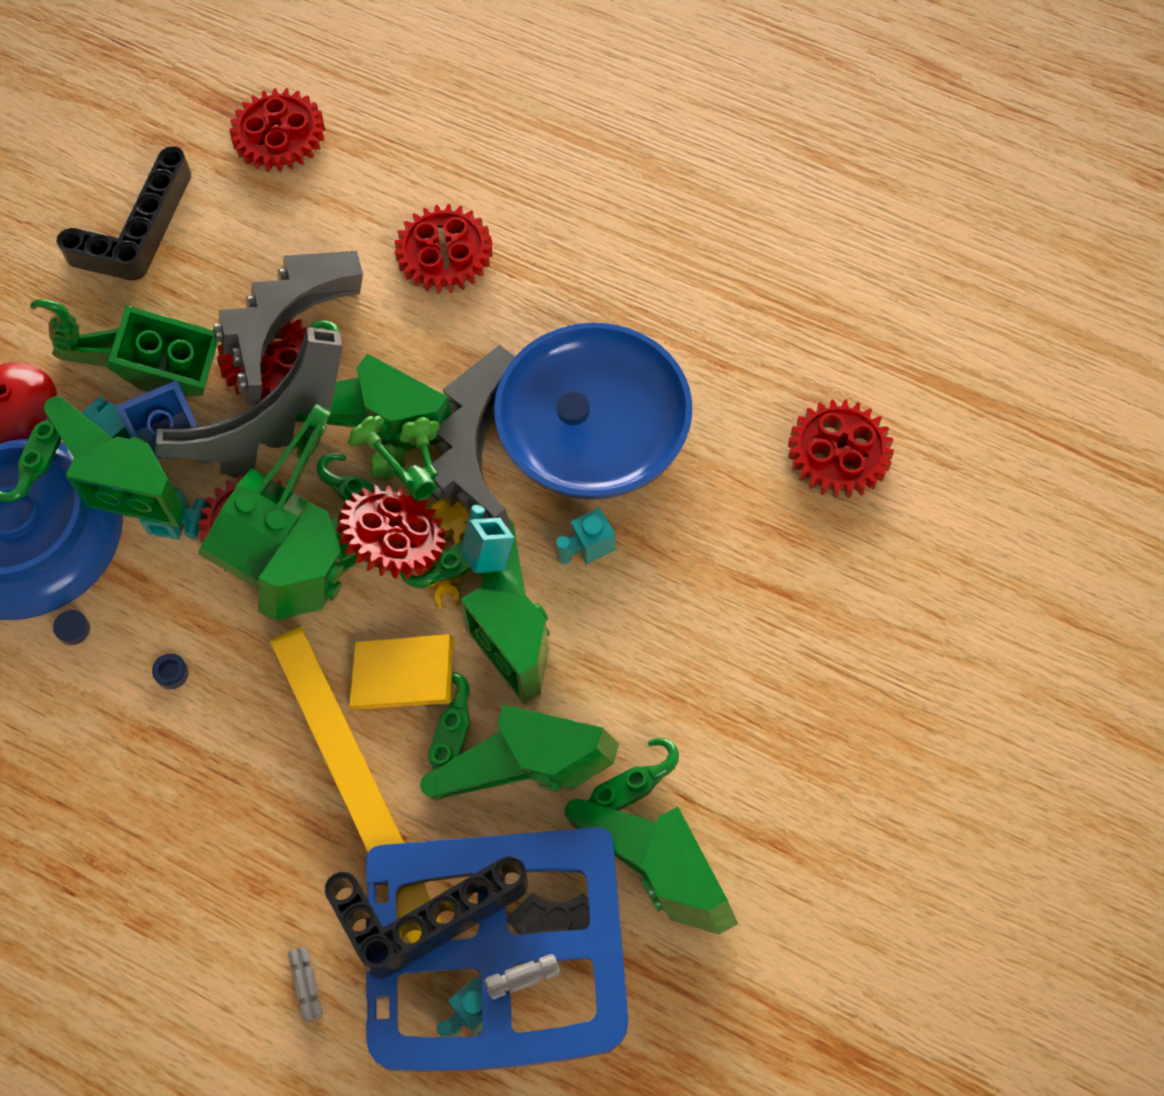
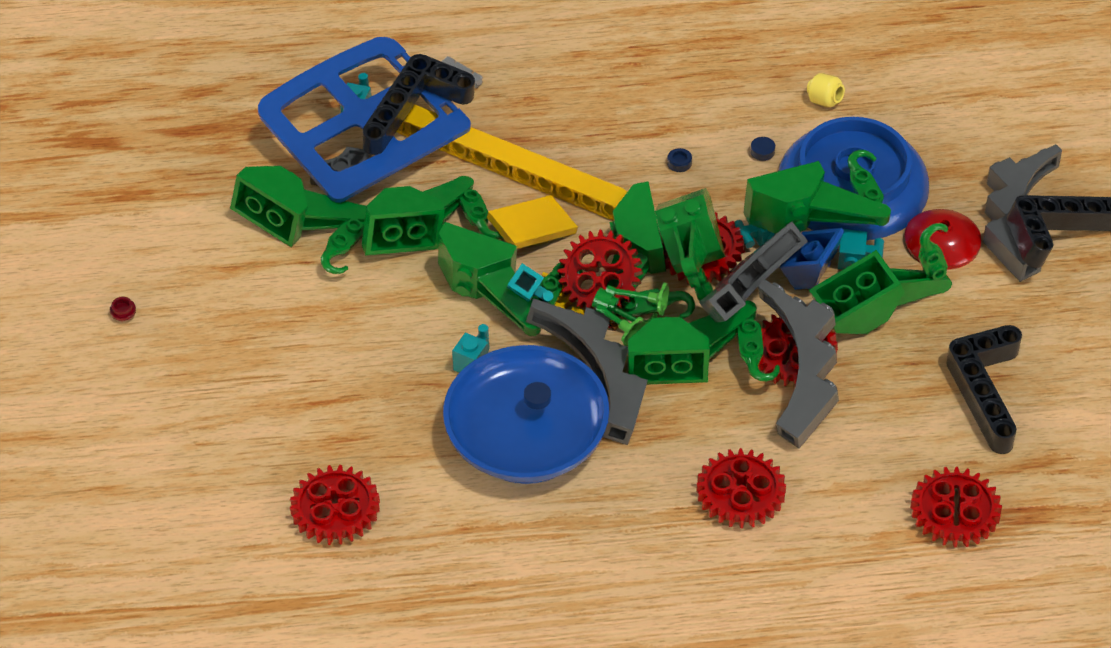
camera: 145 degrees right, 15 degrees down
(522, 976) = (333, 101): light grey axle -> none
(944, 853) = (122, 309): none -> dark red plate

